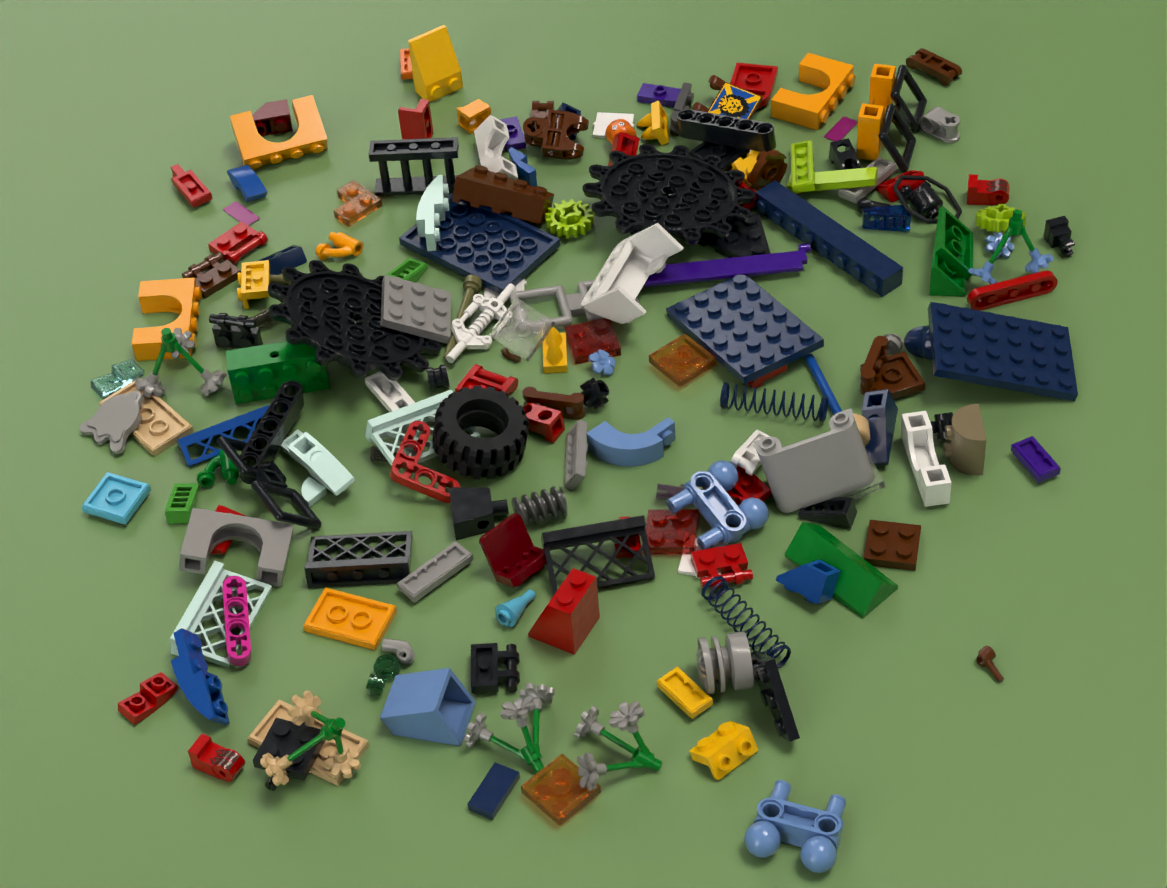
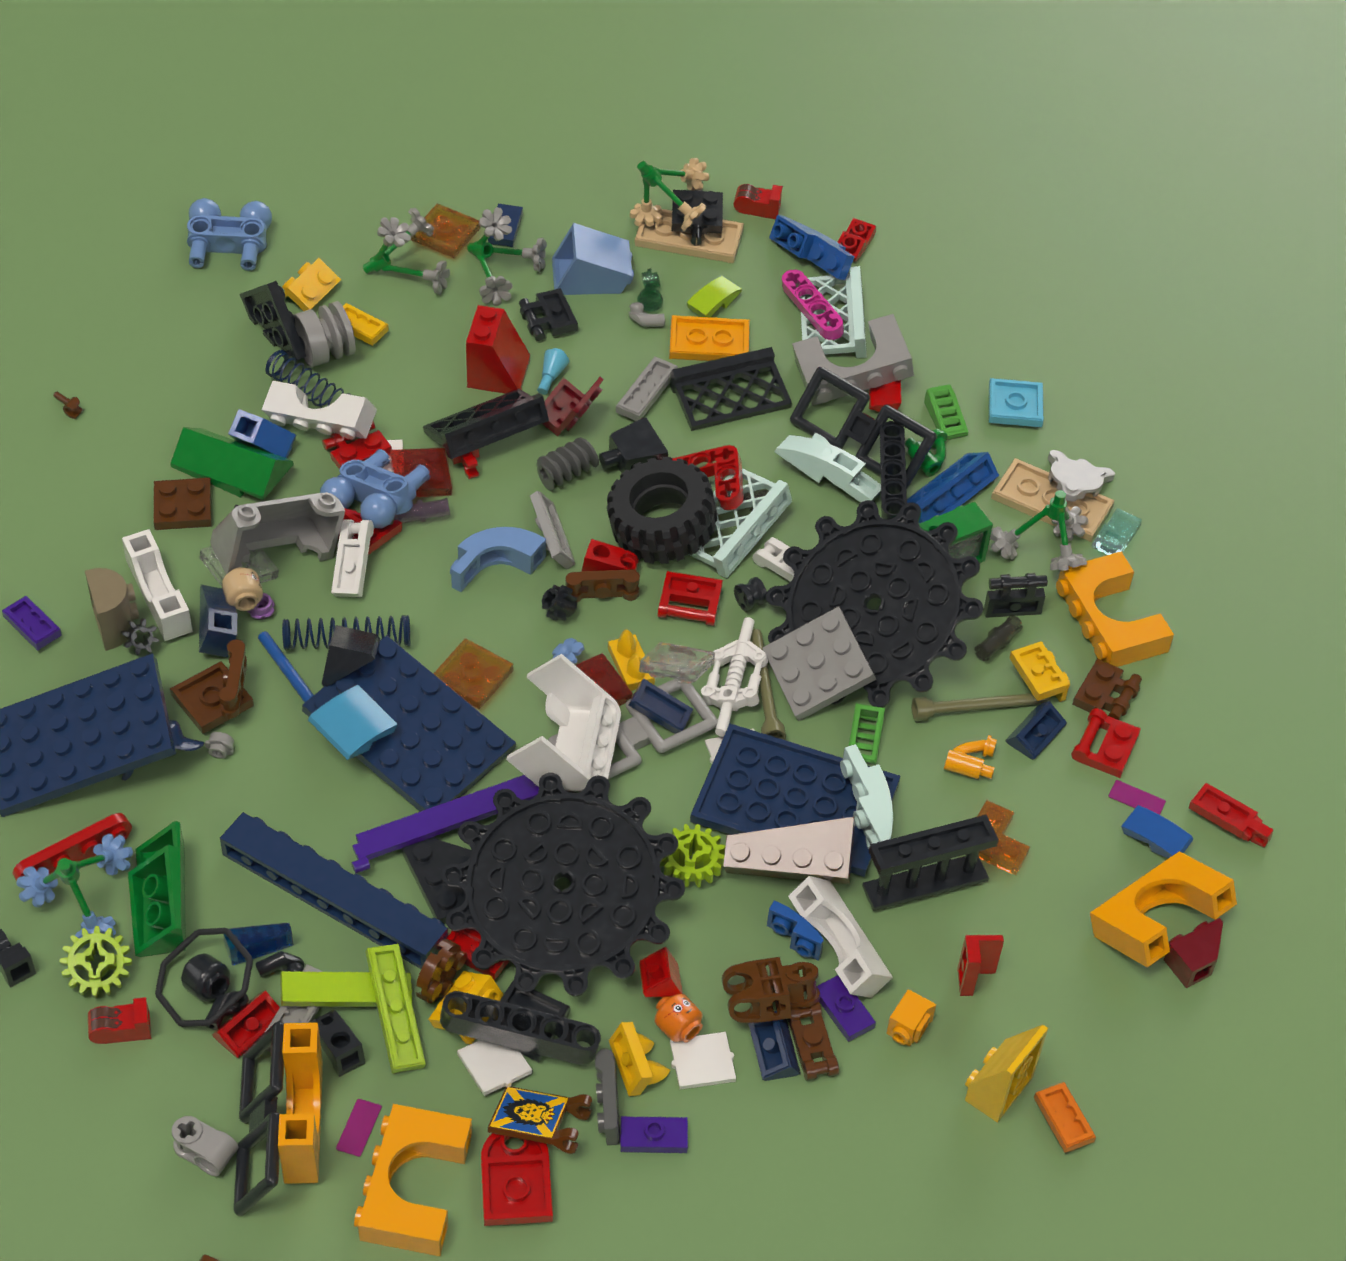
camera: 155 degrees right, 5 degrees up
(319, 656) = (713, 296): none -> lime slope
(551, 307) = (660, 706): none -> dark blue tile
(728, 560) = (347, 416): none -> white arch
(777, 362) = (348, 652): none -> black slope
(787, 310) = (352, 722): none -> dark azure slope

